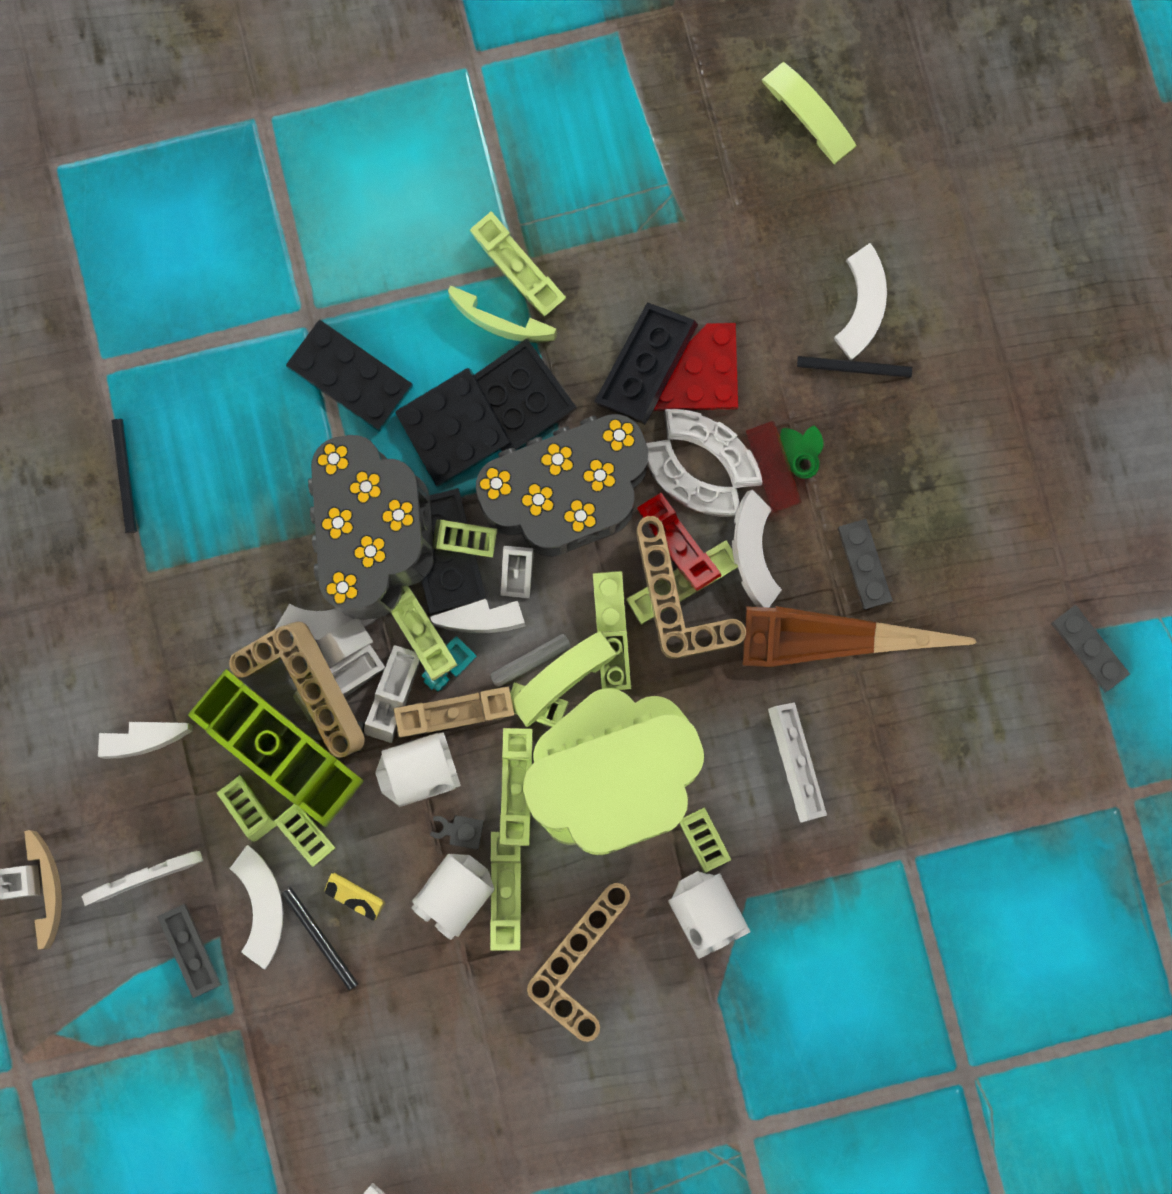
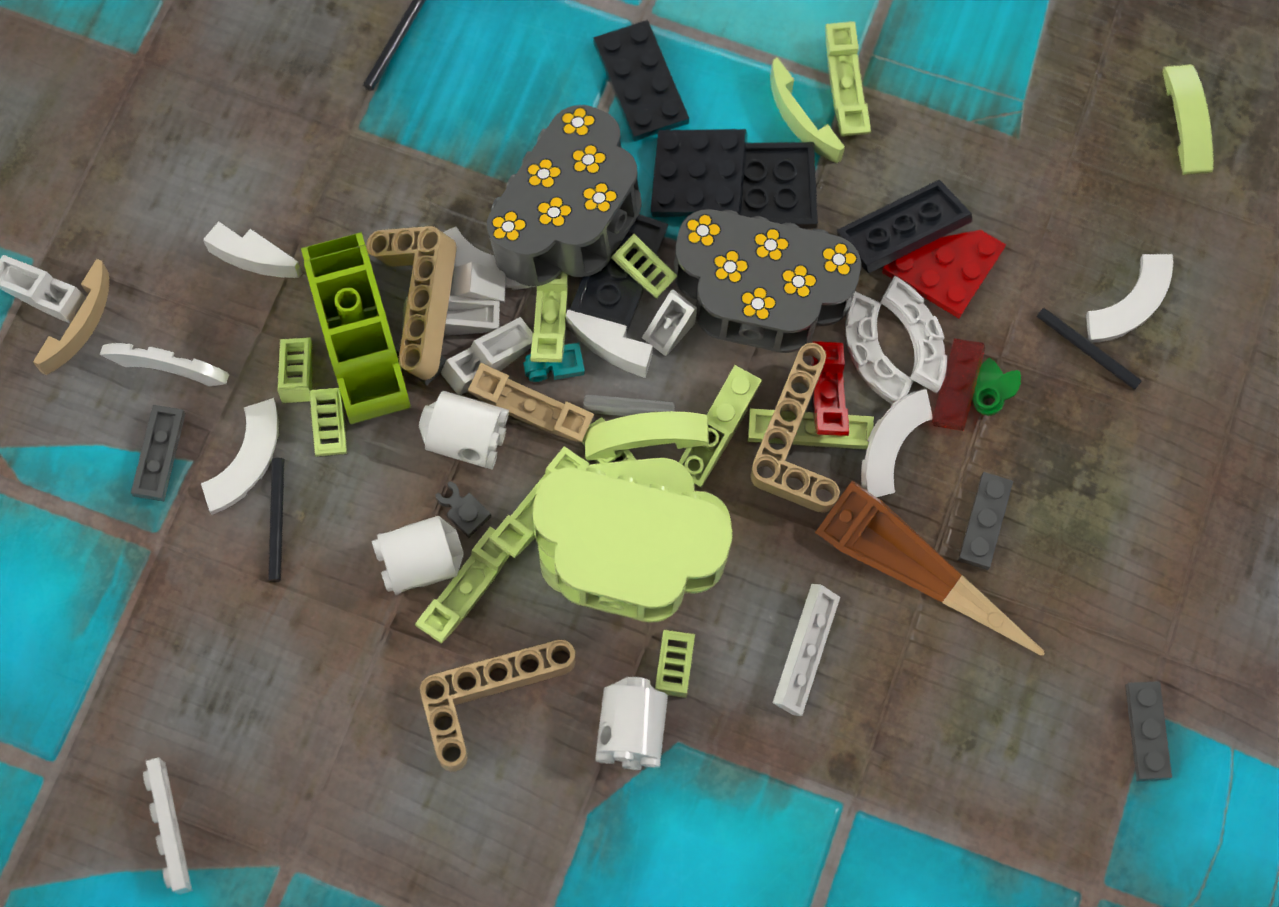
camera: 30 degrees right, 10 degrees down
(354, 896) = (331, 502): light yellow slope -> none

